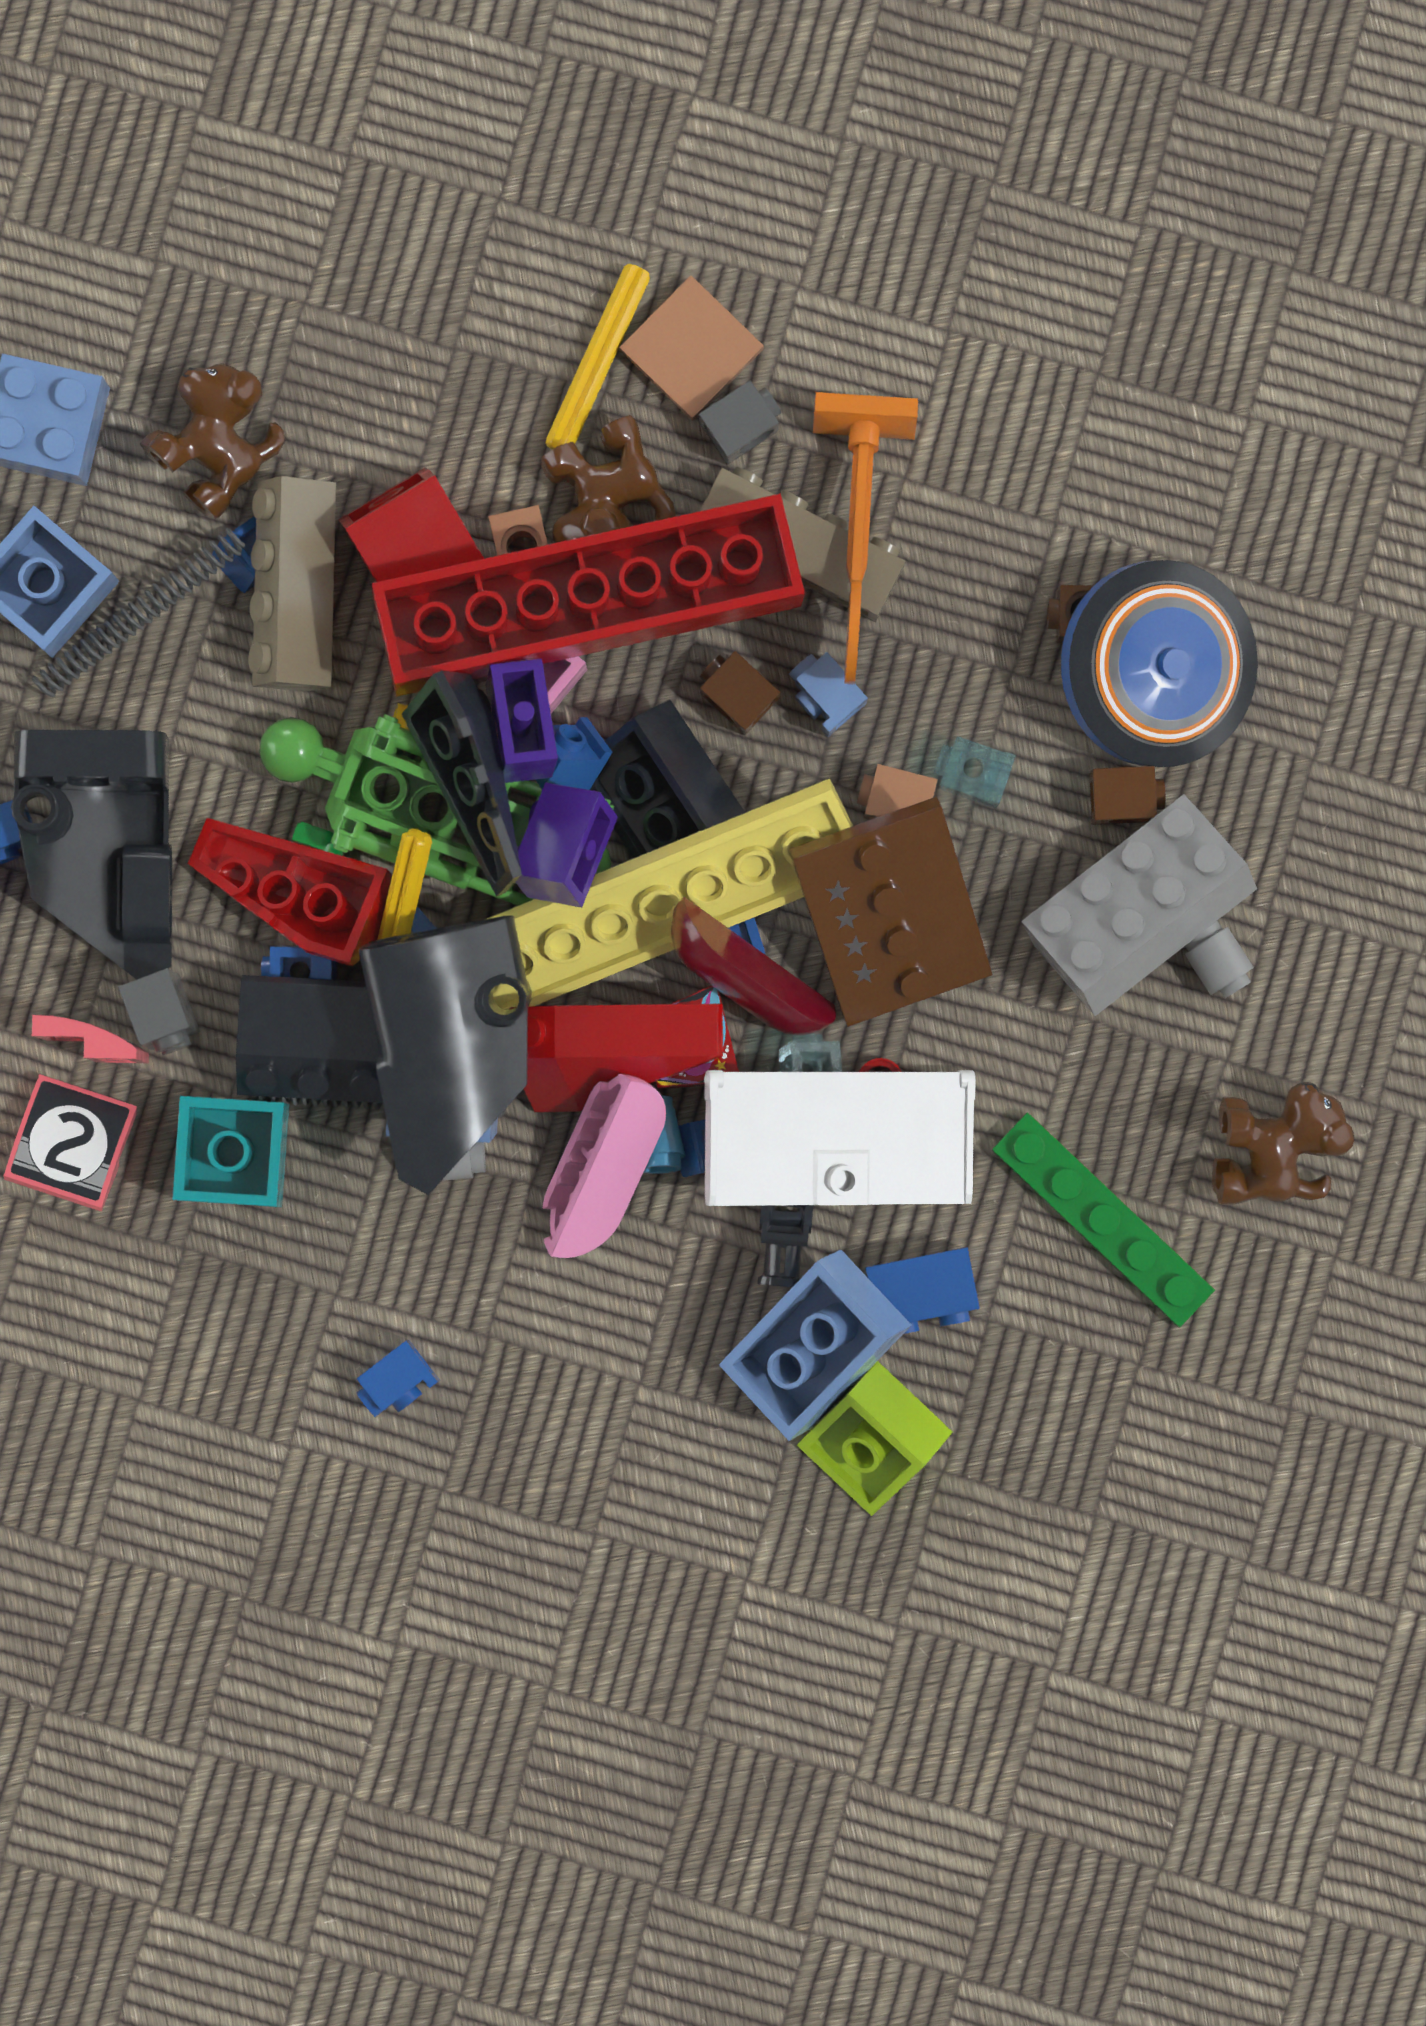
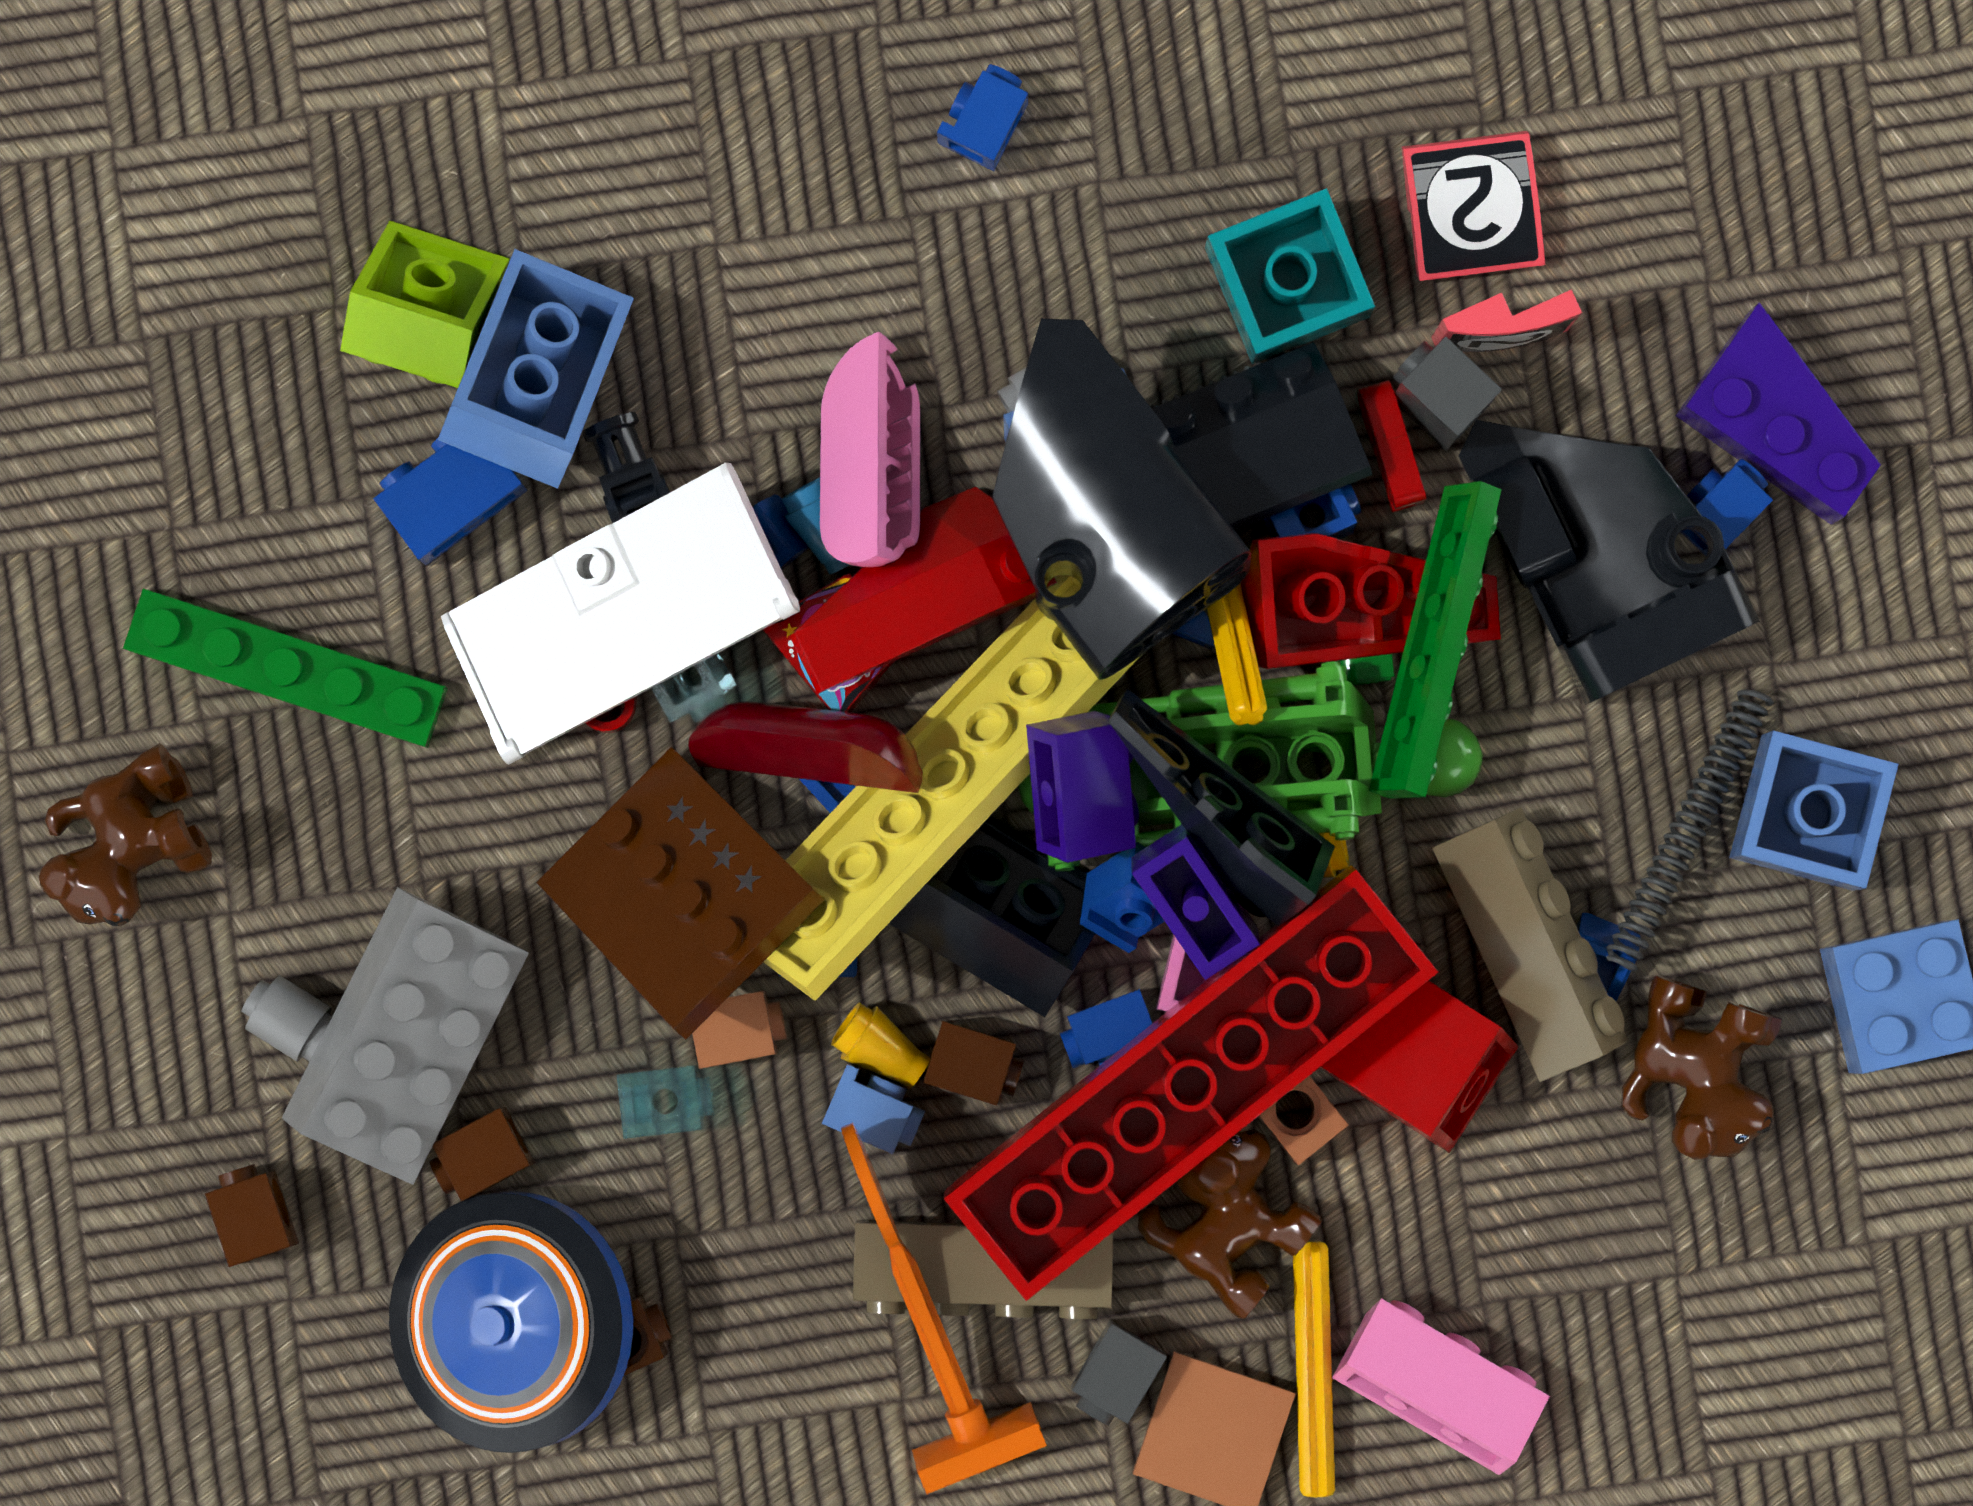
camera: 155 degrees right, 0 degrees up
(217, 994) = (1391, 446): none -> red piece
(255, 831) = (1435, 640): none -> green plate
(511, 302) = (1442, 1385): none -> bright pink brick
(629, 670) = (1105, 1028): none -> blue brick
(800, 738) = (878, 1045): none -> yellow cone
(1312, 830) = (250, 1215): none -> reddish brown brick

